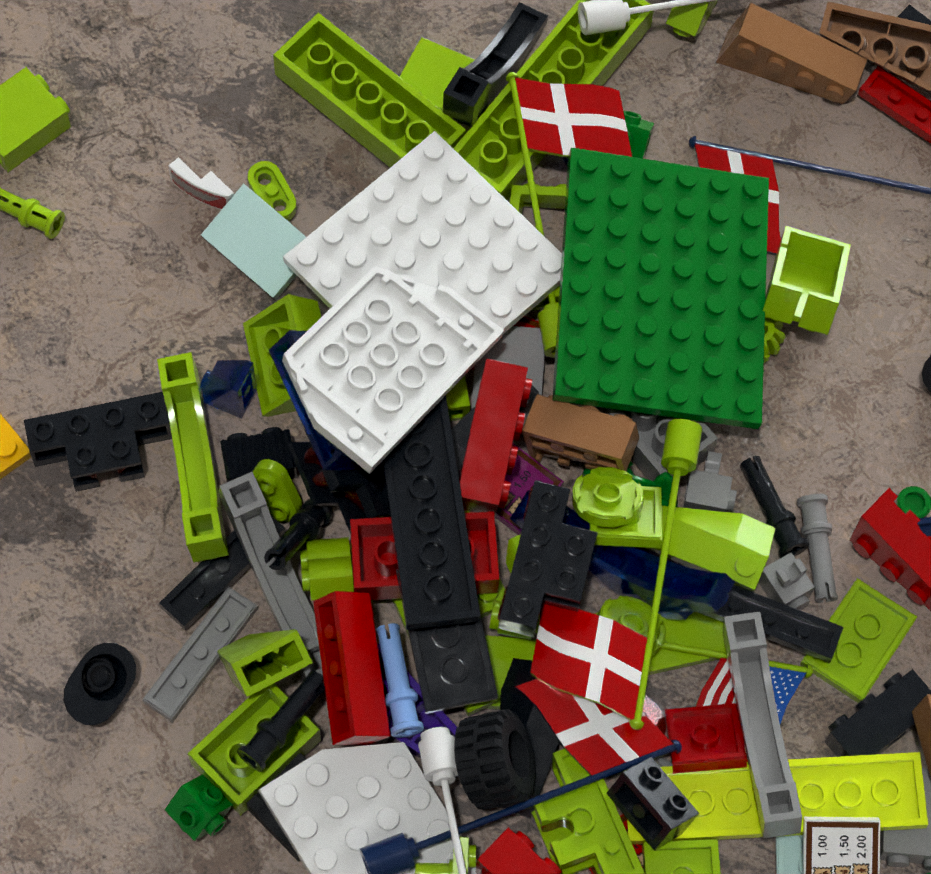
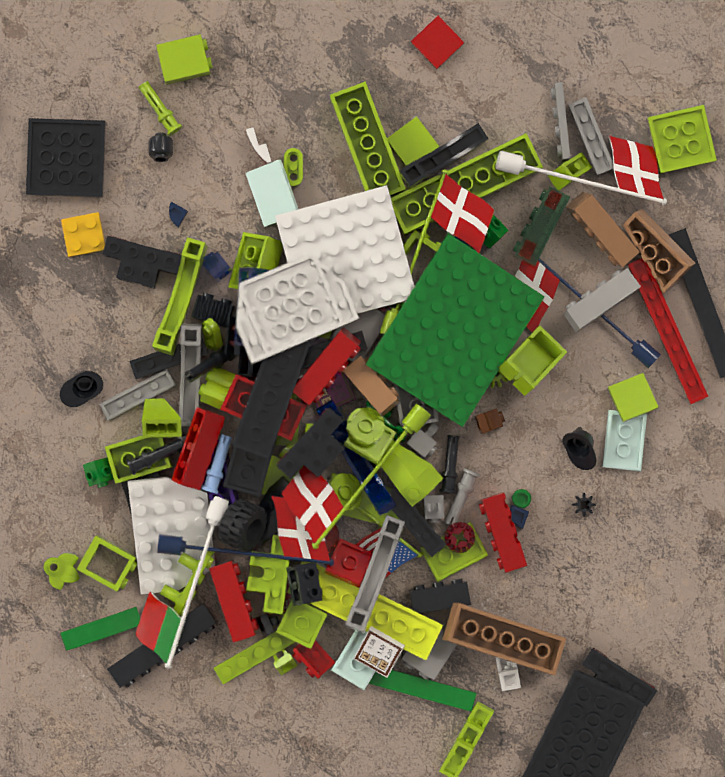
camera: 30 degrees right, 20 degrees up
(44, 258) = (160, 147): none -> black head
(122, 346) = (177, 214): none -> dark blue tile
(700, 86) = (541, 227): none -> clear green piece
(791, 409) = (489, 420): none -> reddish brown arch
(847, 618) = (457, 528): none -> dark red gear
(853, 151) = (601, 300): none -> light grey brick

